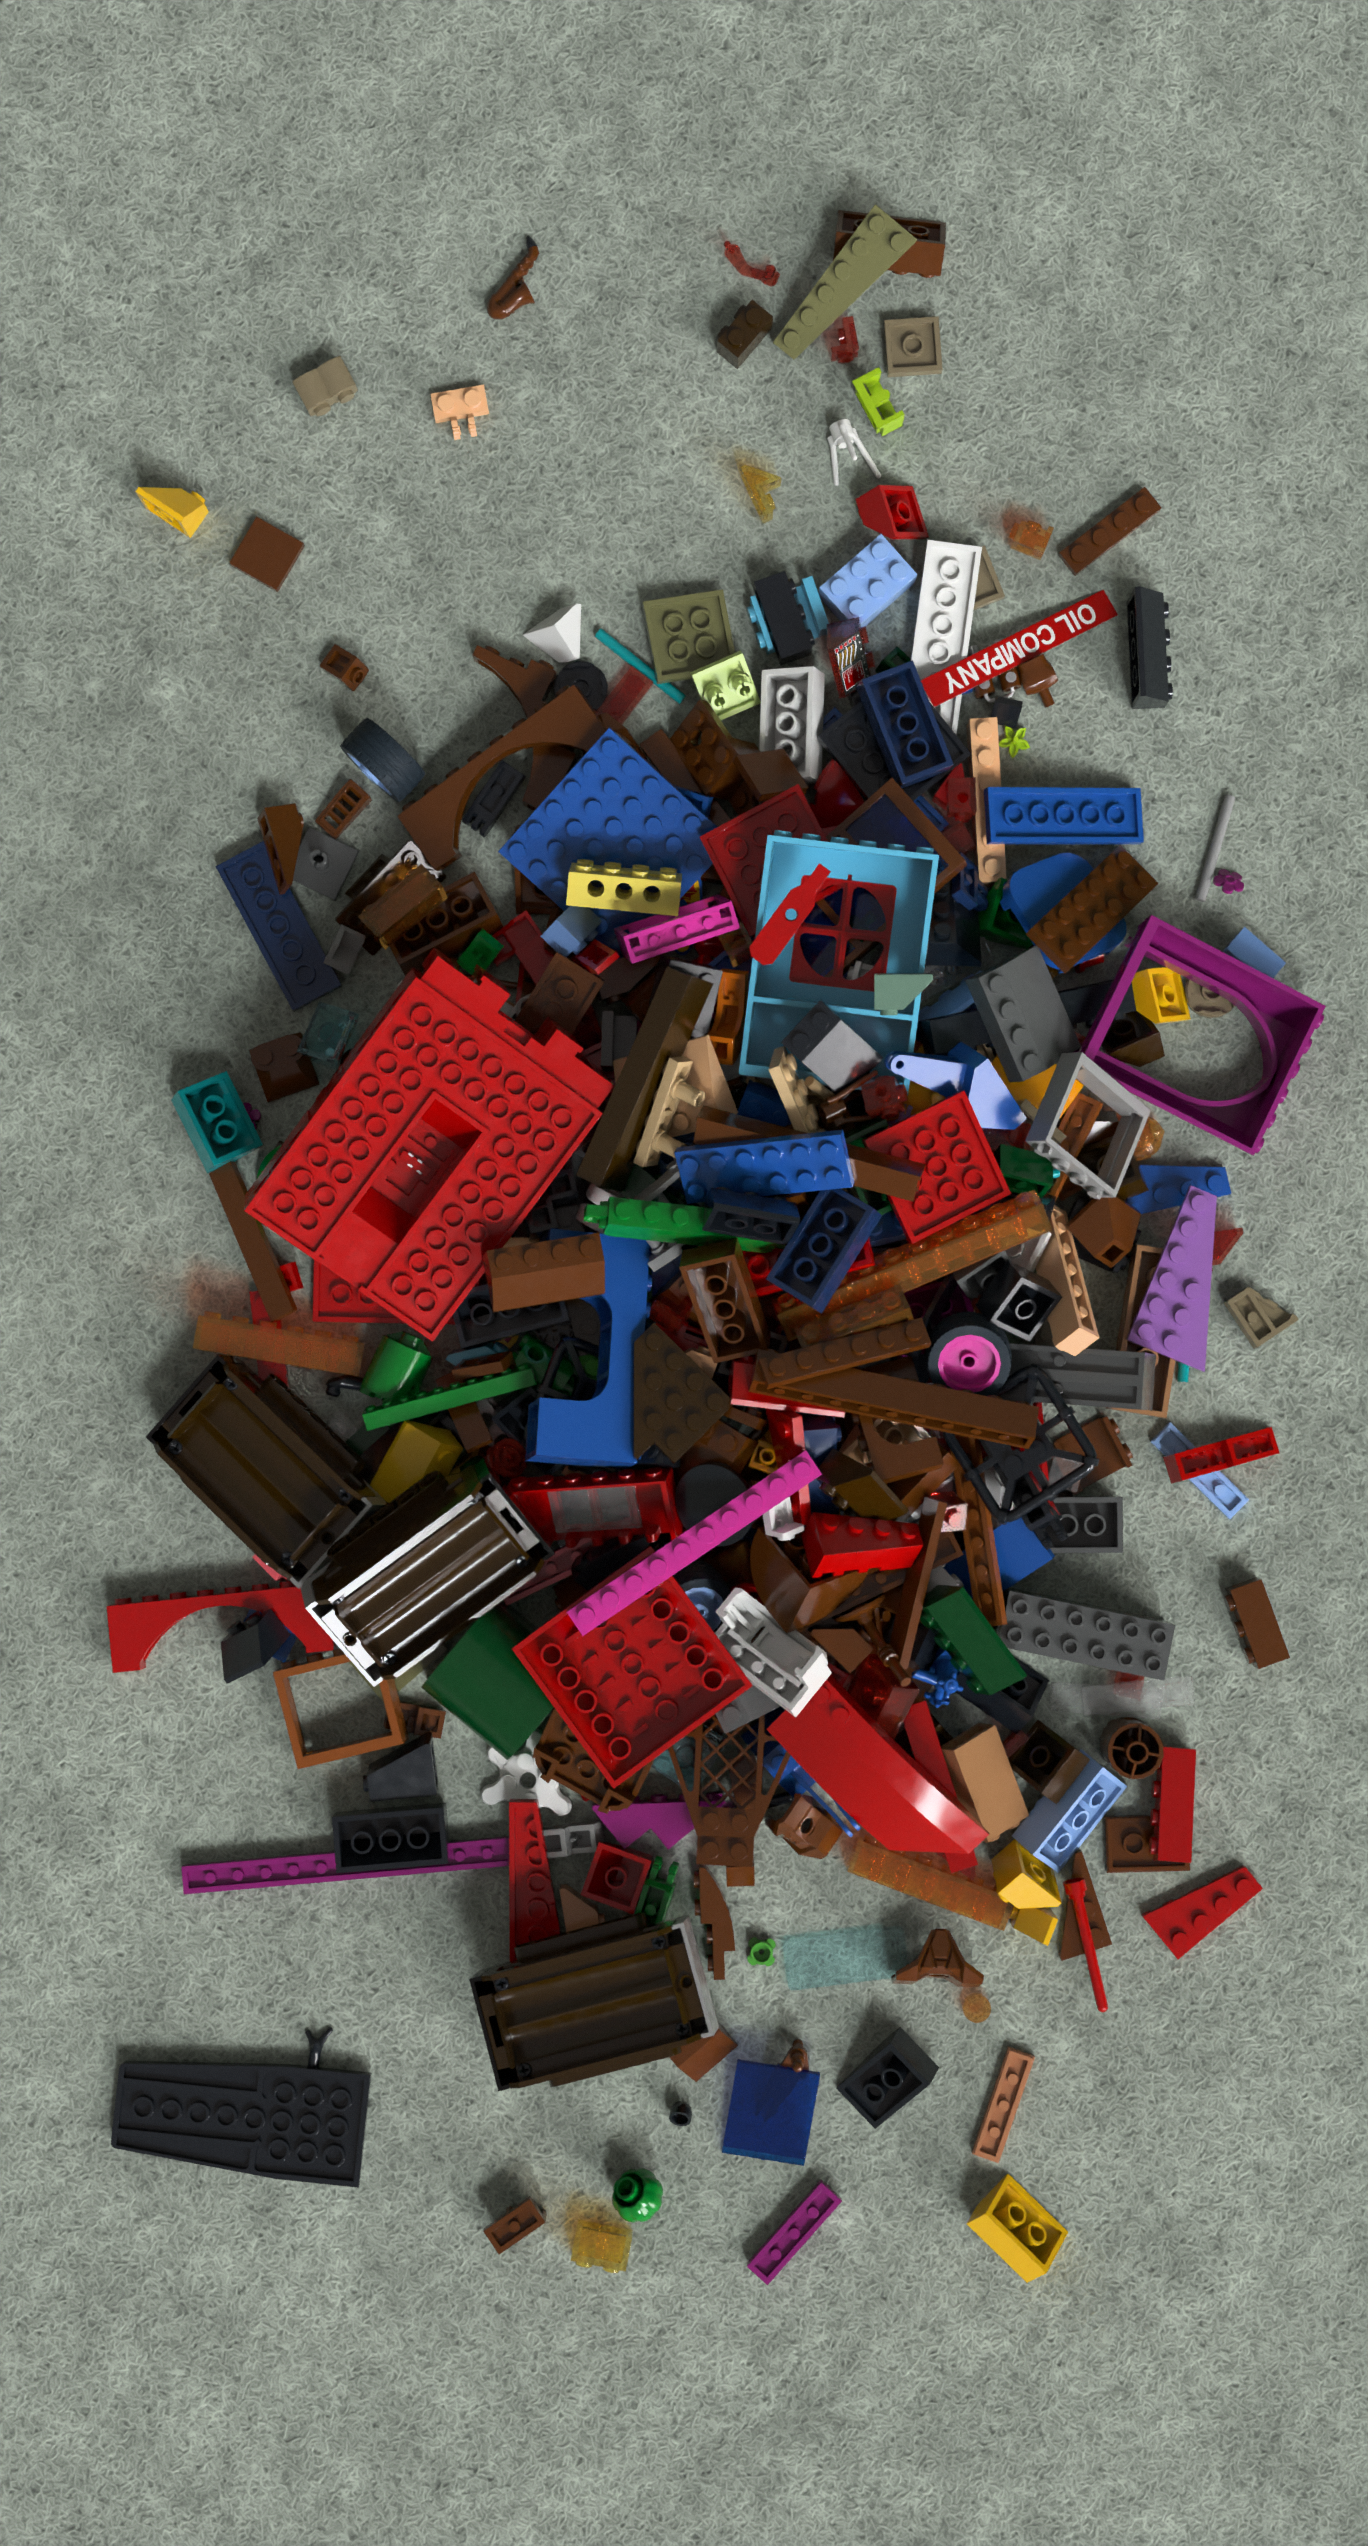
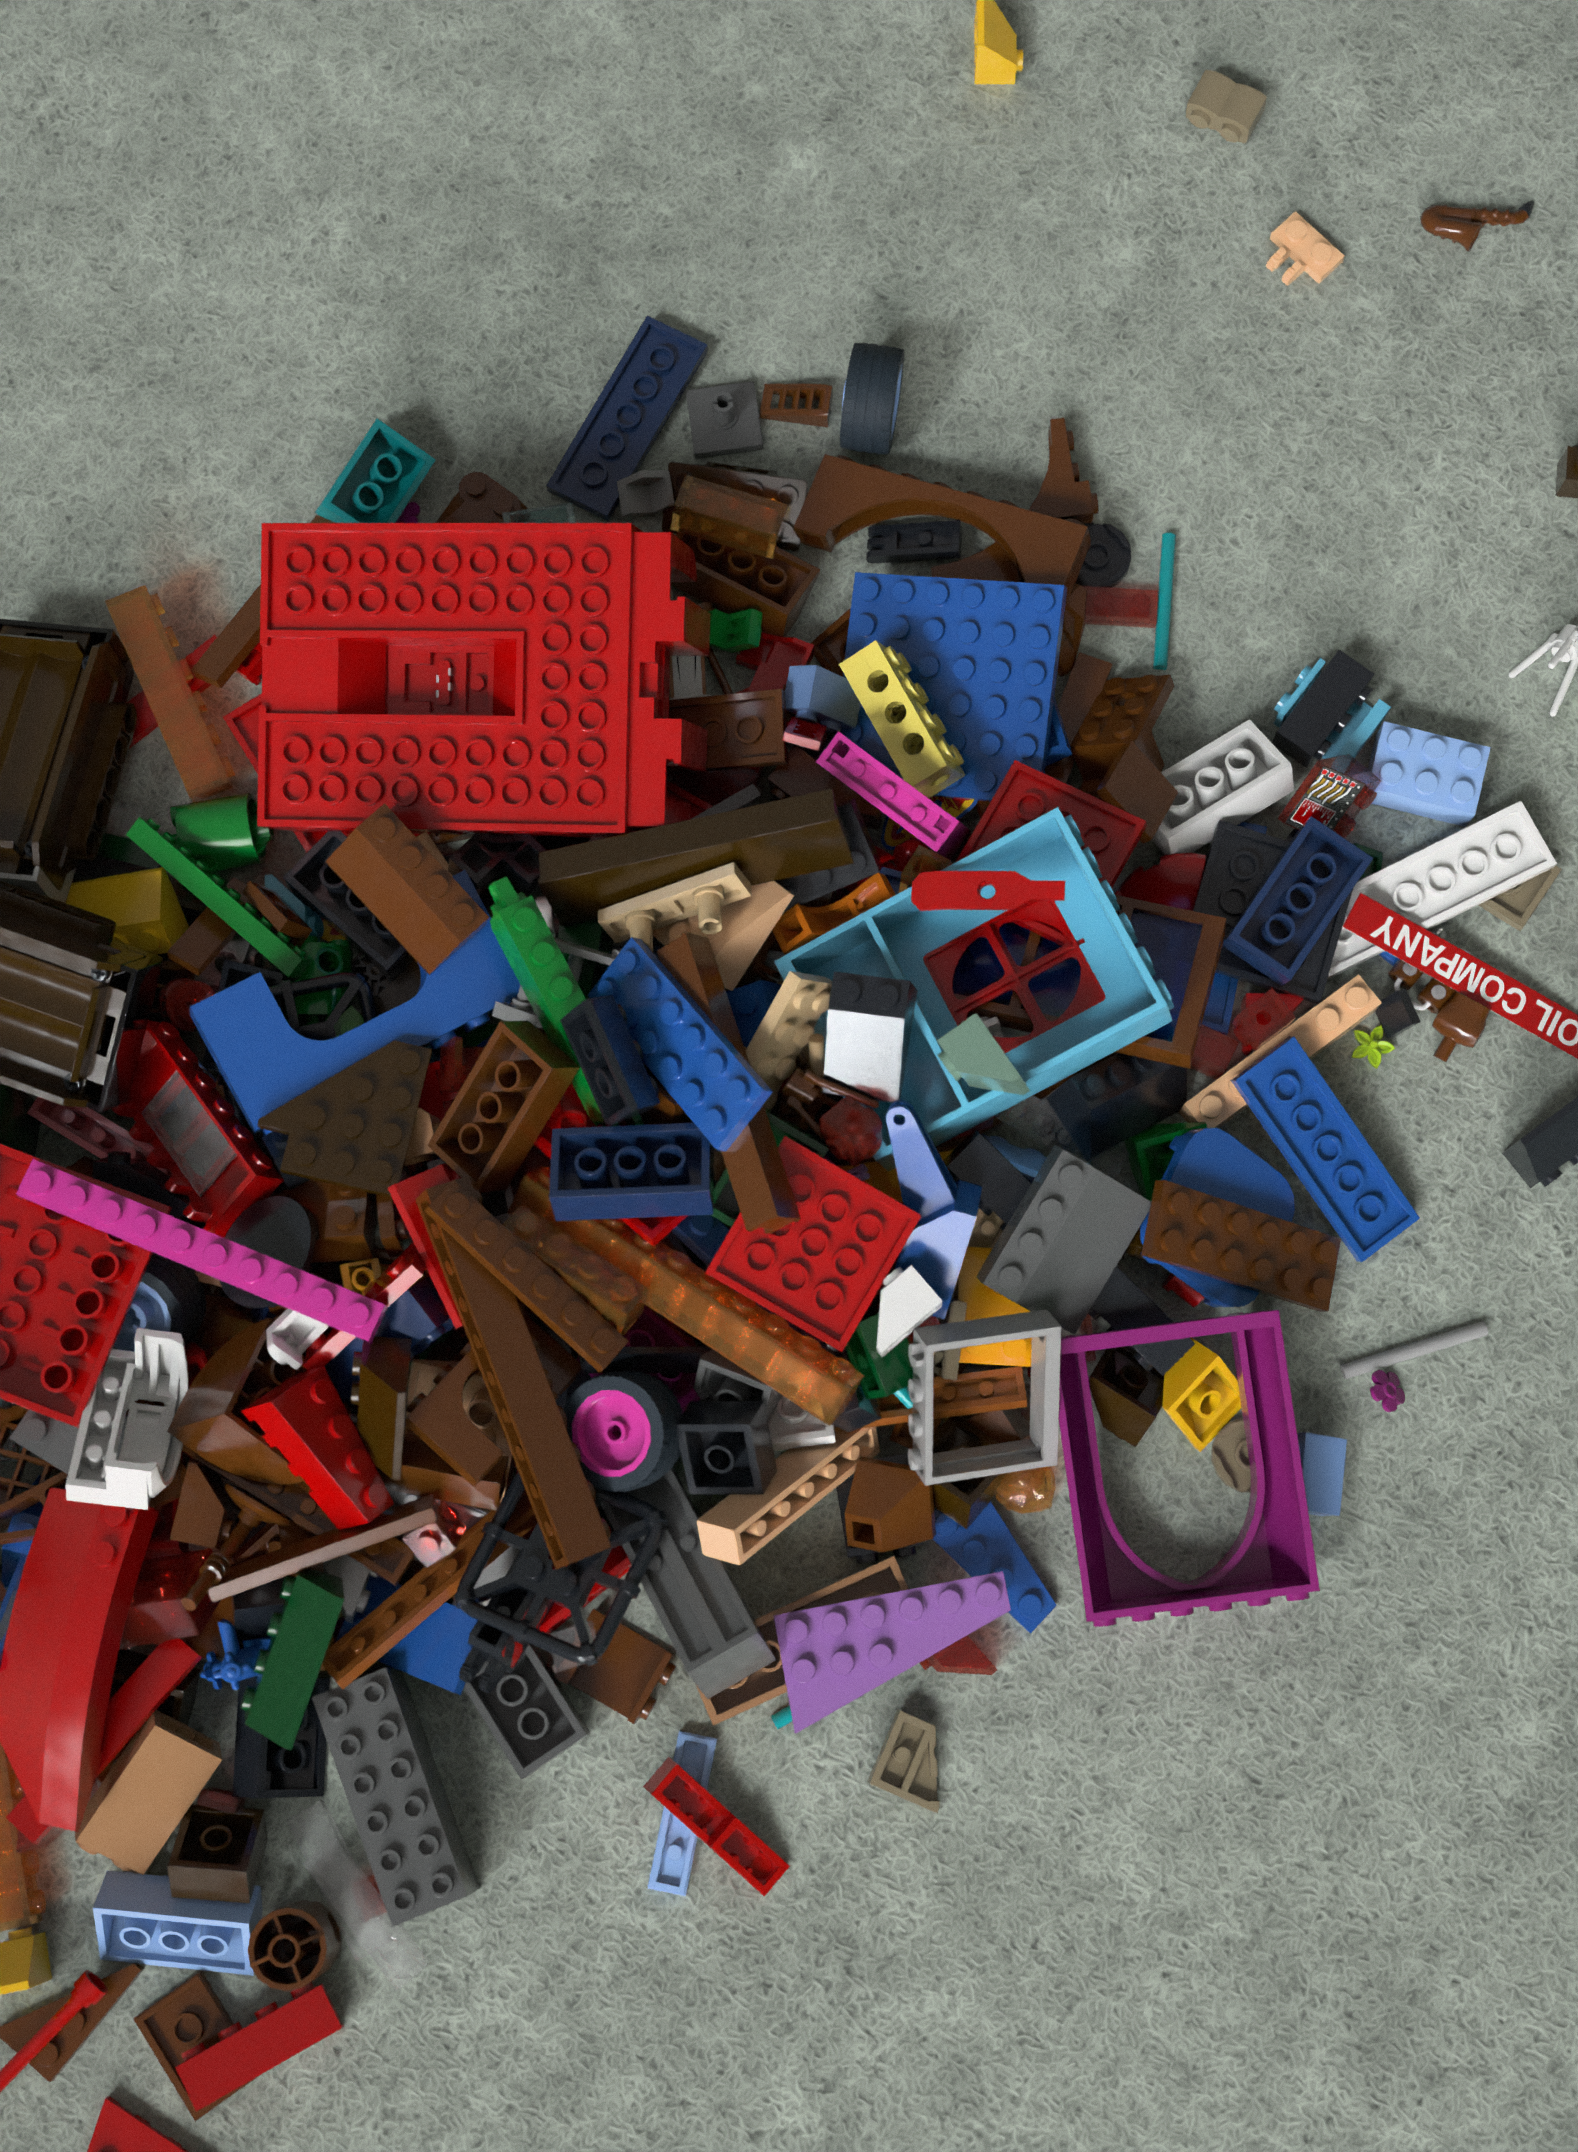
camera: 65 degrees right, 10 degrees down
(267, 554) = (1011, 164): reddish brown tile -> none
(282, 835) = (723, 358): reddish brown slope -> none
(344, 667) = (947, 310): reddish brown bracket -> none
(345, 1382) = (171, 786): black arm -> none
(559, 634) = (1137, 496): white slope -> none
(687, 633) = (1232, 627): olive plate -> none
(726, 685) = (1205, 697): yellowish green plate -> none
(757, 484) = (1448, 594): clear yellow slope -> none
(892, 512) = (1525, 749): red slope -> none
(968, 888) = (1167, 1092): dark blue hinge -> none
(1010, 1139) = (903, 1306): none -> white slope
(1024, 1878) = (59, 1920): yellow slope -> none
(1256, 1623) = (541, 2003): reddish brown brick -> none

